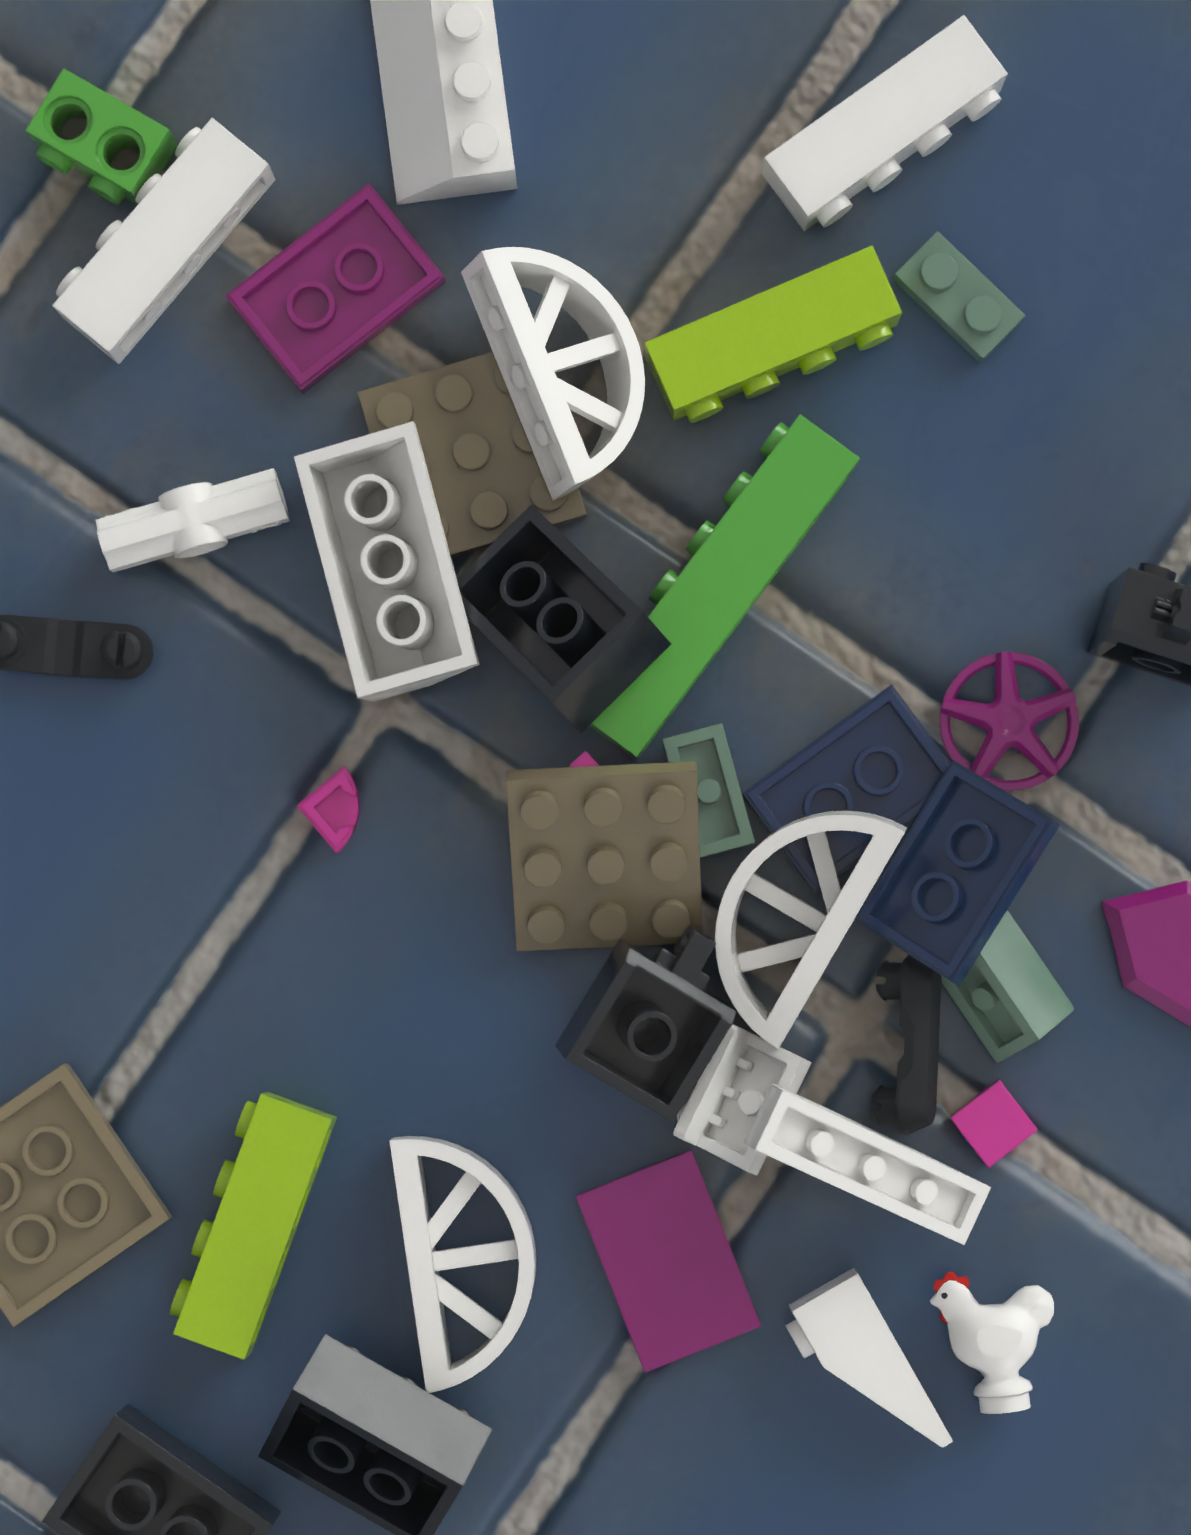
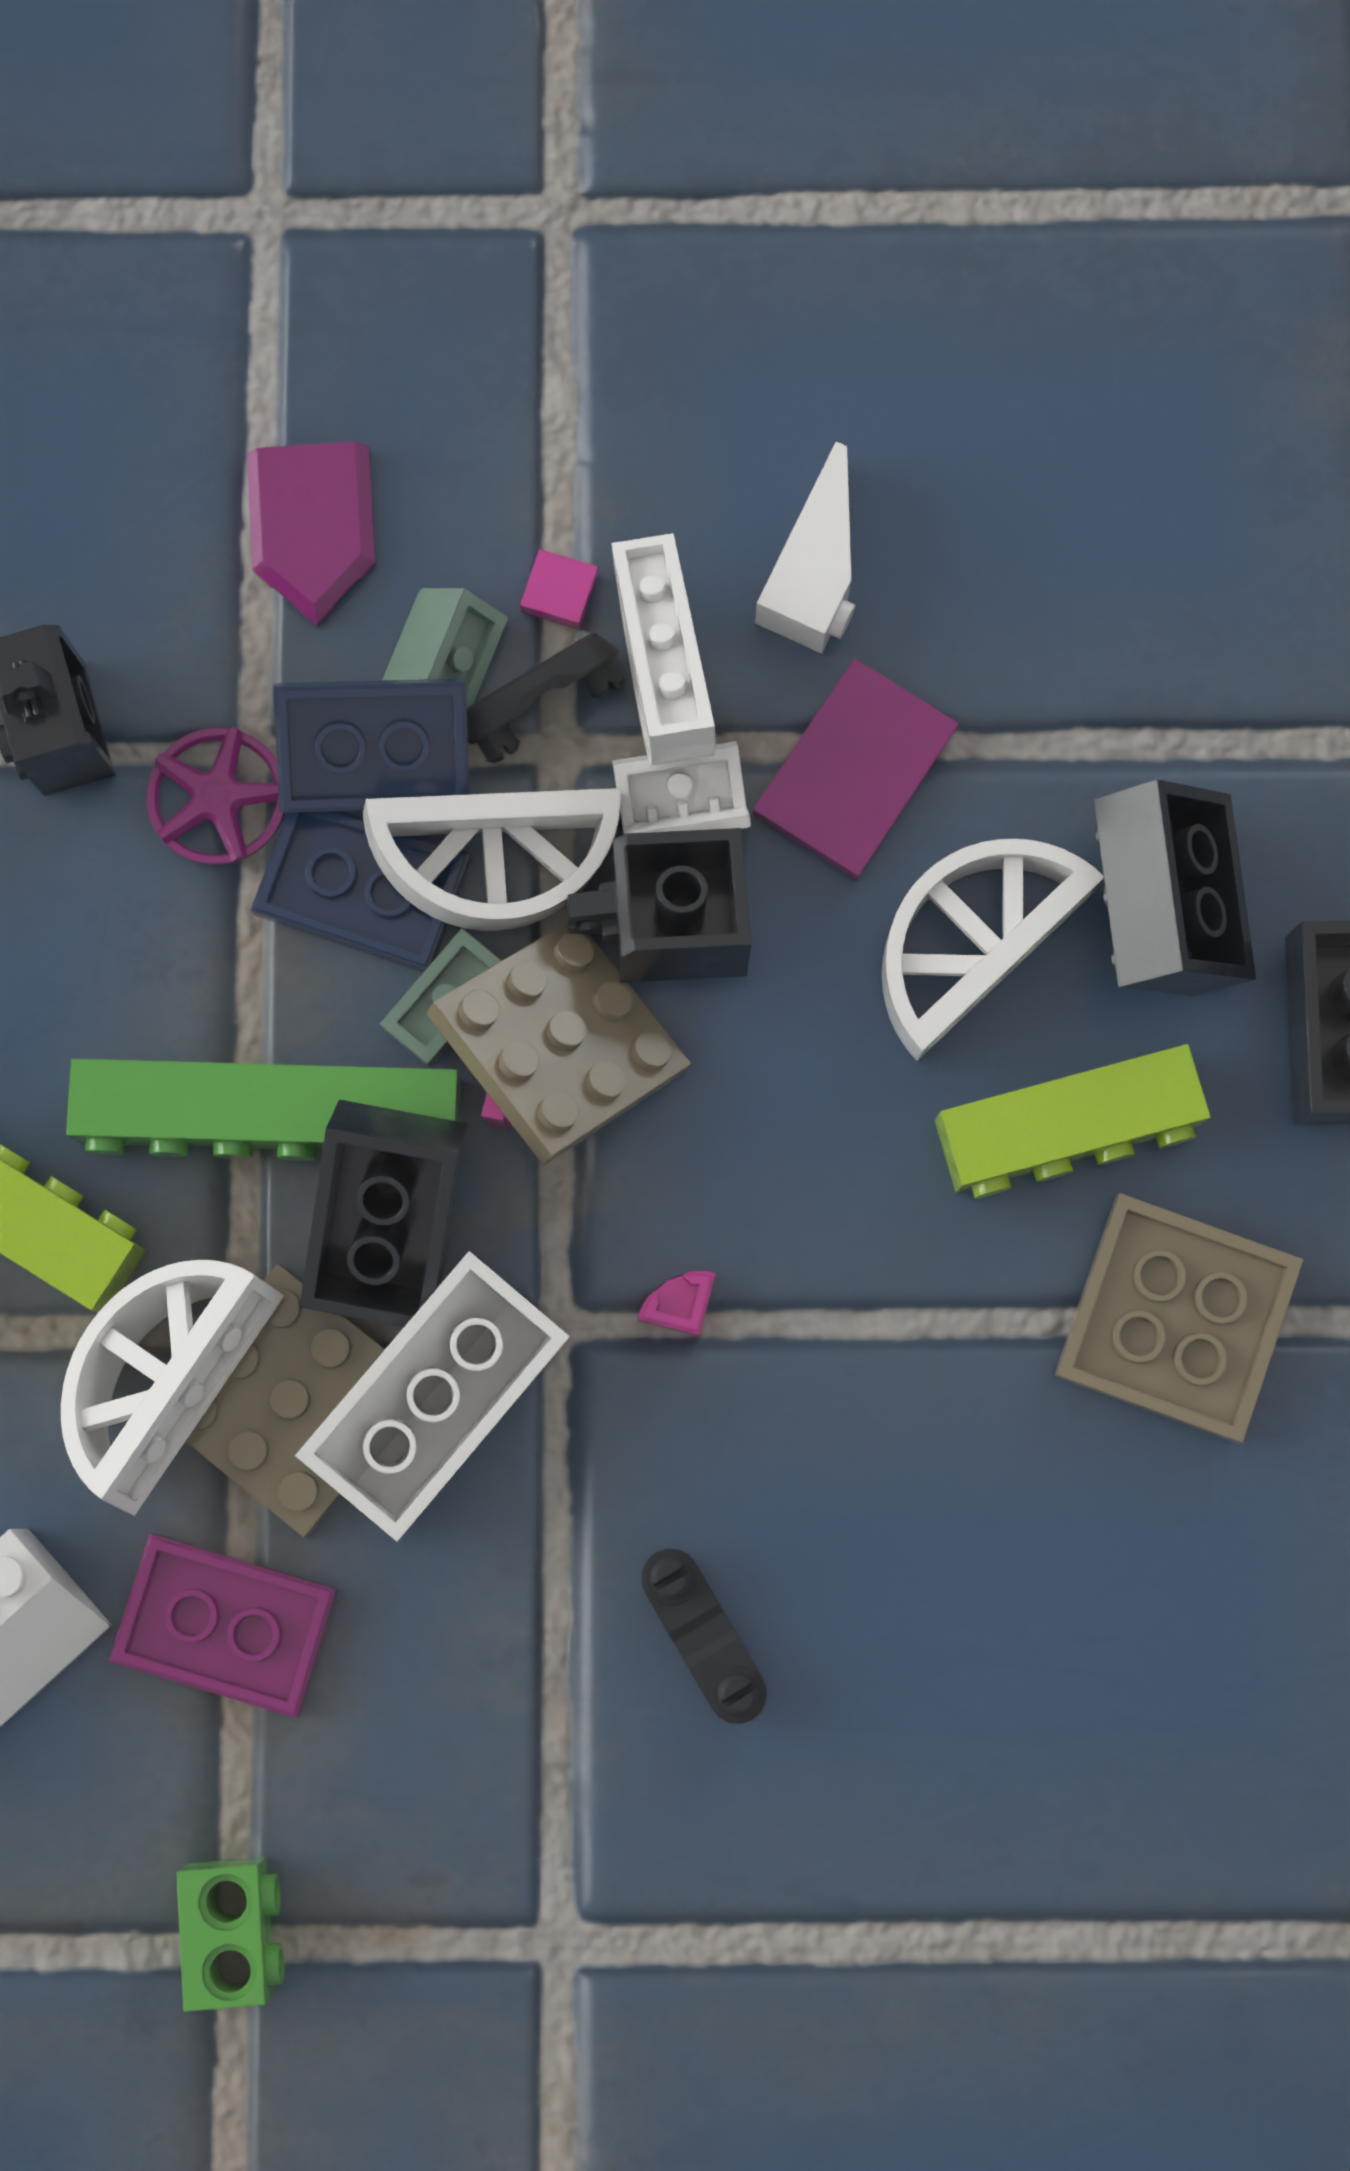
camera: 130 degrees left, 5 degrees down
(163, 240) = (282, 1809): white brick -> none
(192, 520) = (514, 1601): white piece -> none
(994, 1338) = (731, 470): white animal -> none

